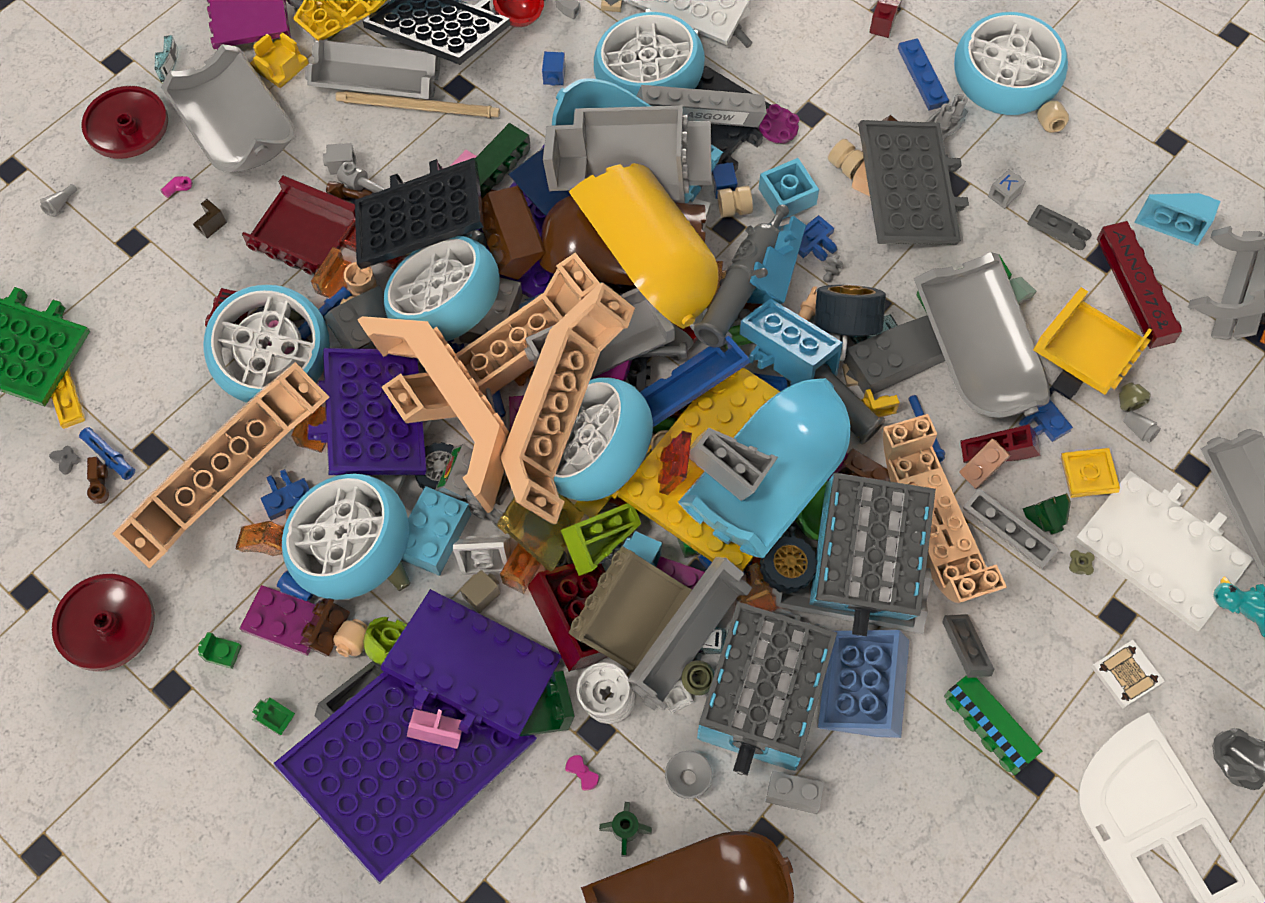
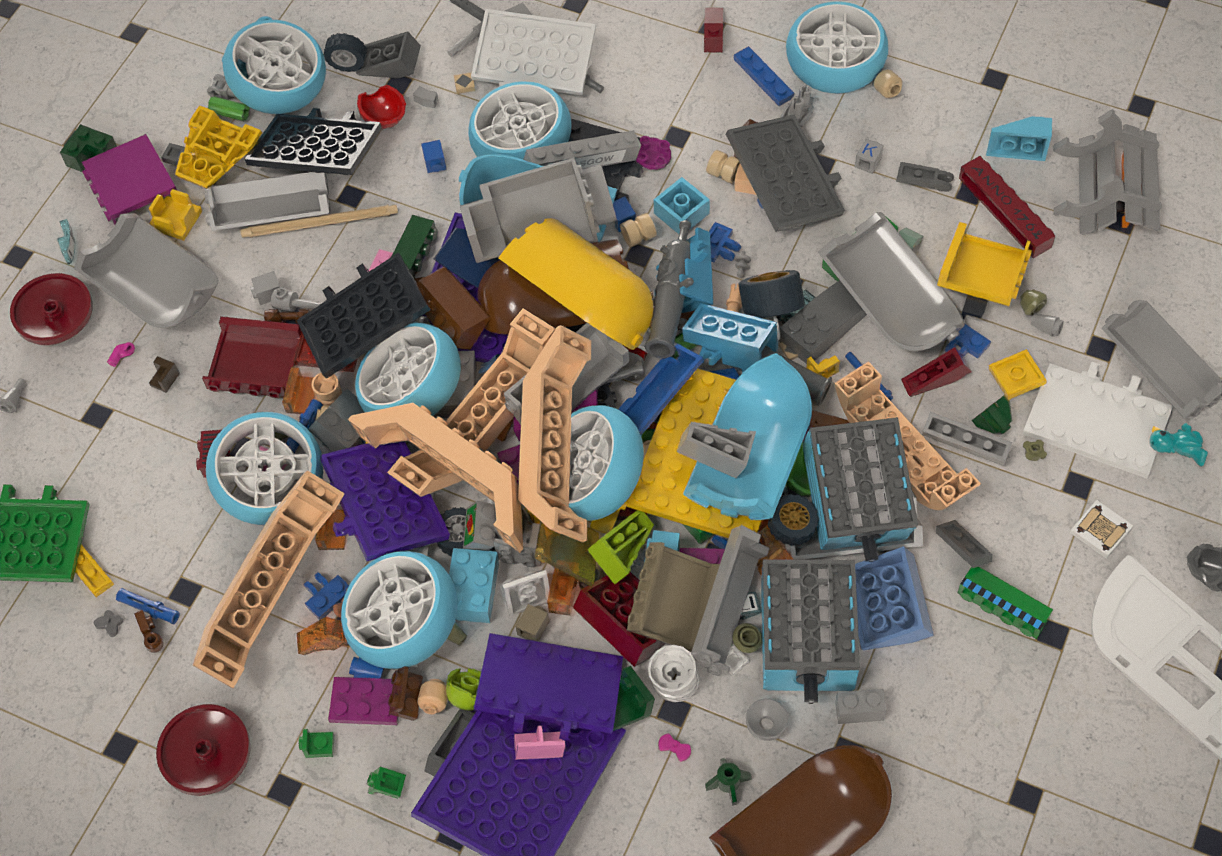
camera: 15 degrees left, 5 degrees down
(675, 463) = (670, 461): clear red plate -> none
(984, 463) = (928, 391): nougat plate -> none

